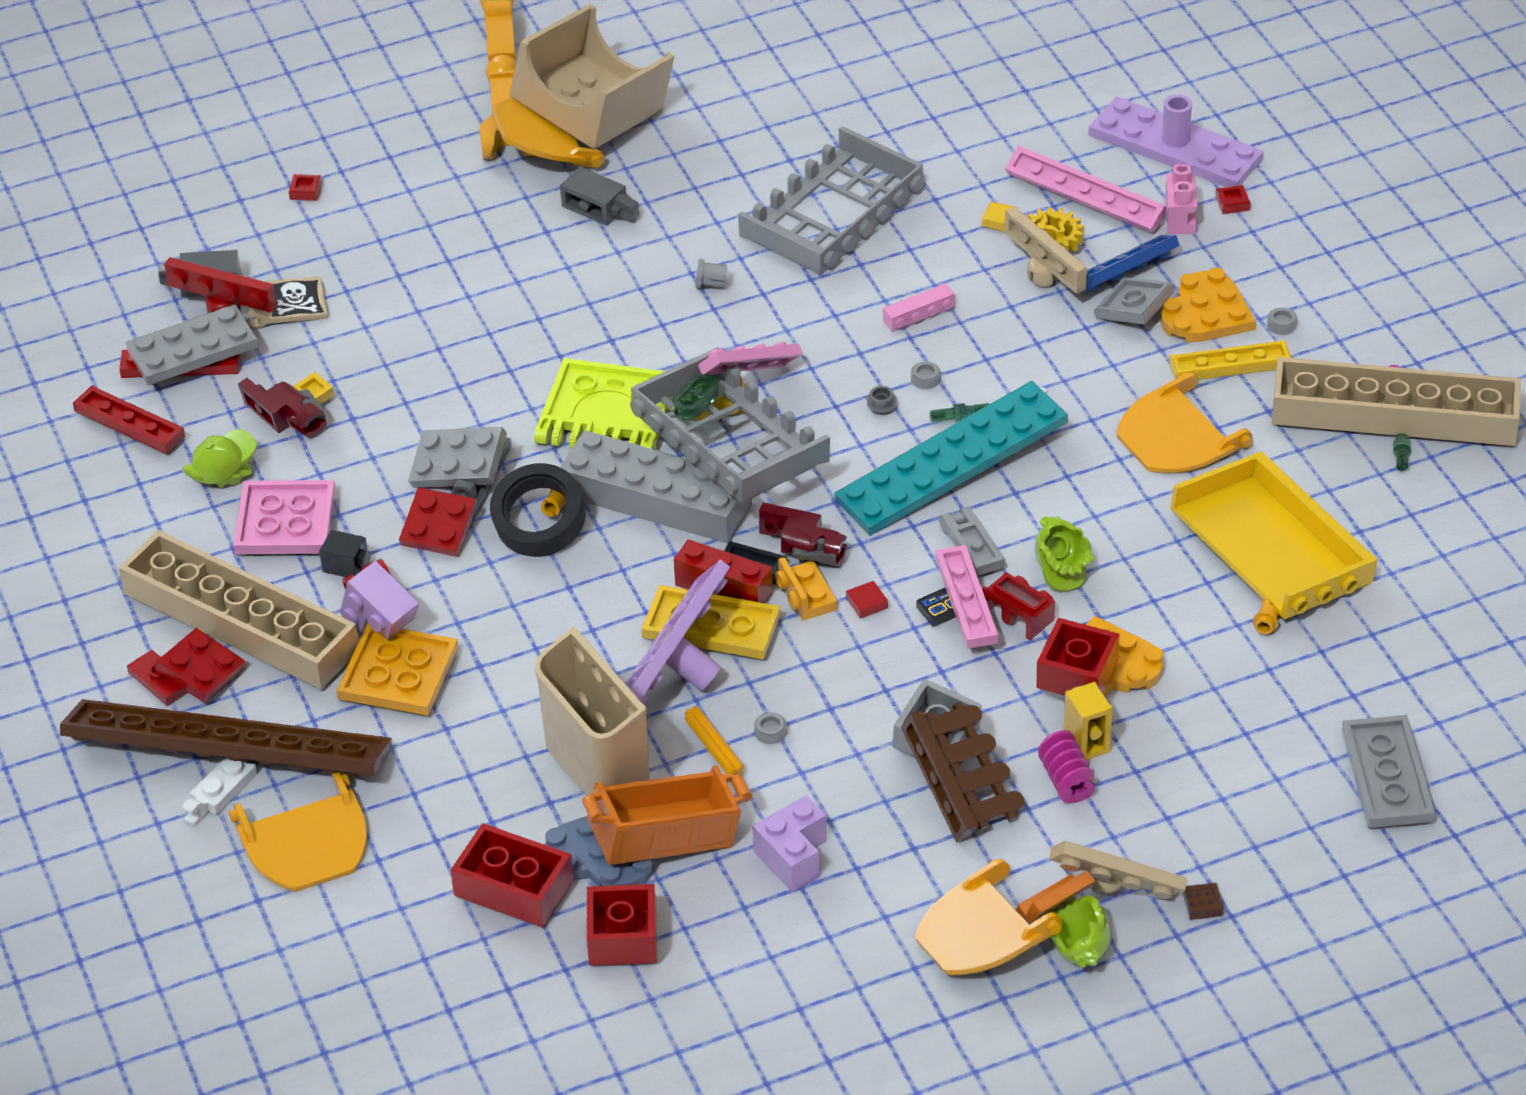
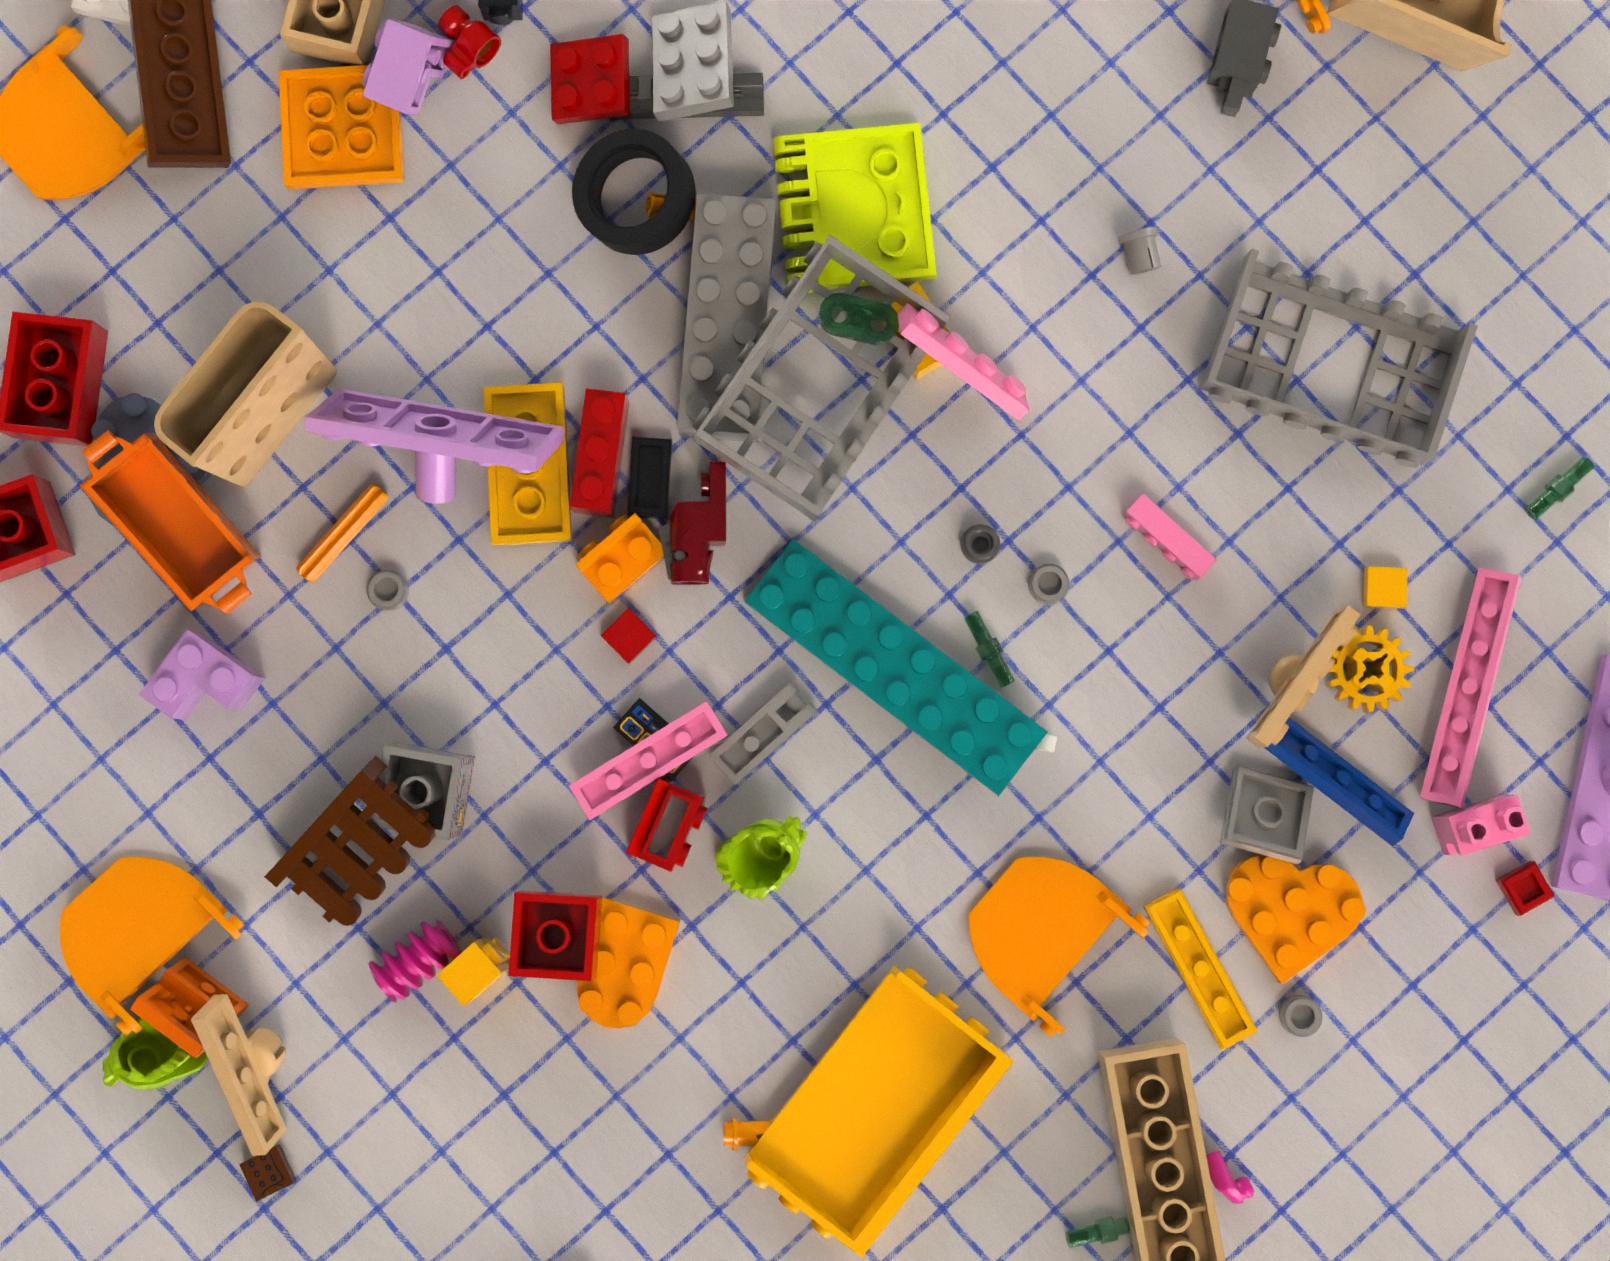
camera: 65 degrees right, 40 degrees up
(967, 124) = (1559, 488): none -> clear green bar

